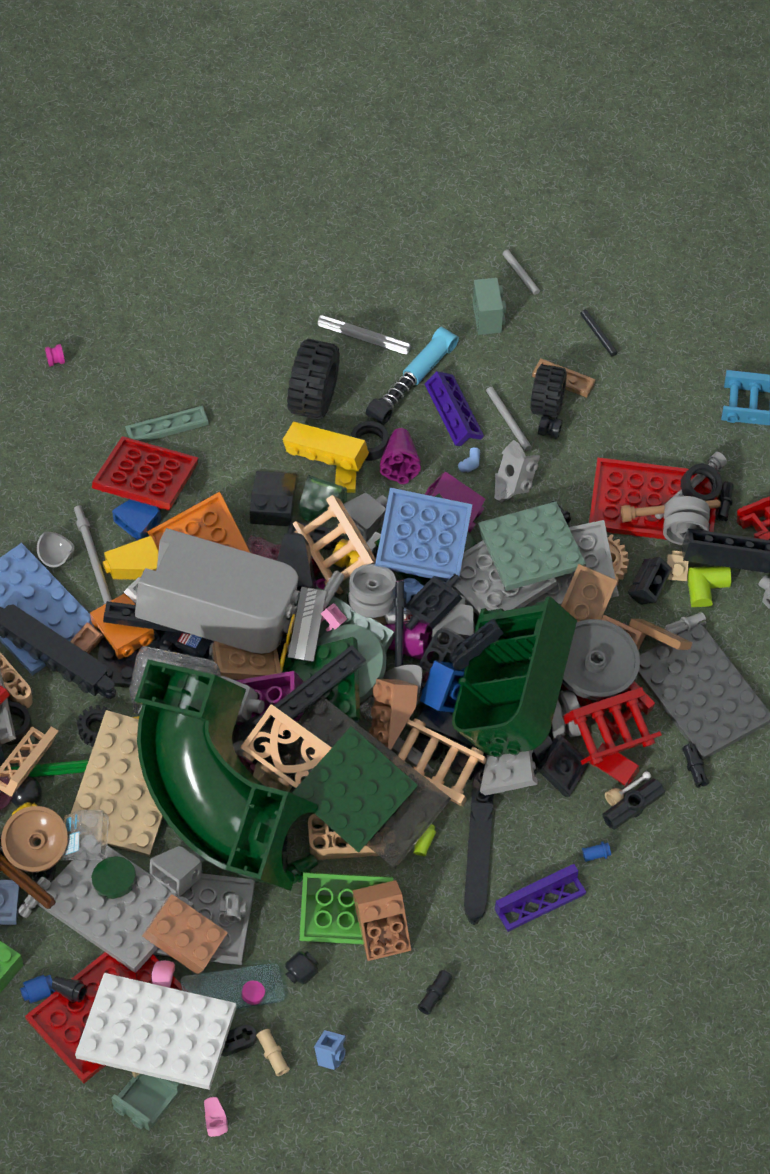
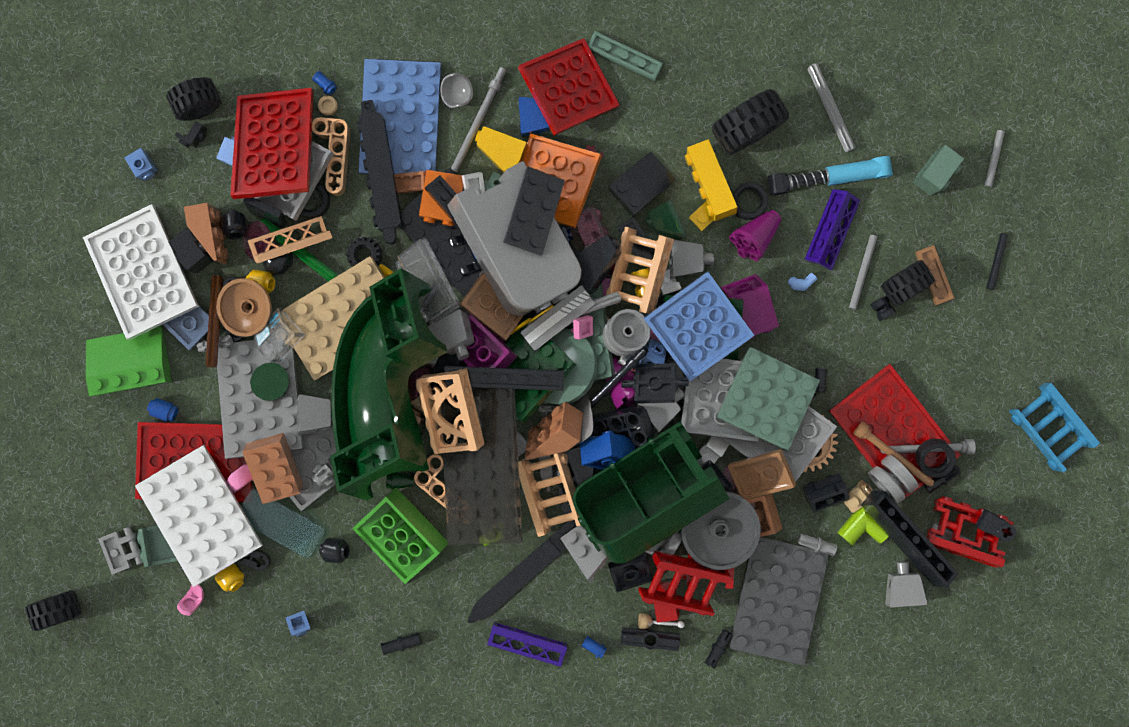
camera: 45 degrees right, 30 degrees up
(71, 989) = (176, 432): black cone -> none
(108, 1142) = (115, 551): none -> light grey plate
(211, 551) = (534, 211): none -> black plate
(232, 1070) = (230, 578): none -> yellow head
(253, 992) = (288, 539): dark pink tile -> none
(272, 1052) = (266, 588): tan pin -> none
(355, 789) = (465, 478): dark green plate -> none
(382, 920) = (409, 570): nougat slope -> none
(475, 644) = (645, 451): black hinge -> none
(515, 472) = (805, 328): light grey piece -> none
(660, 634) = (790, 540): medium nougat tile -> none

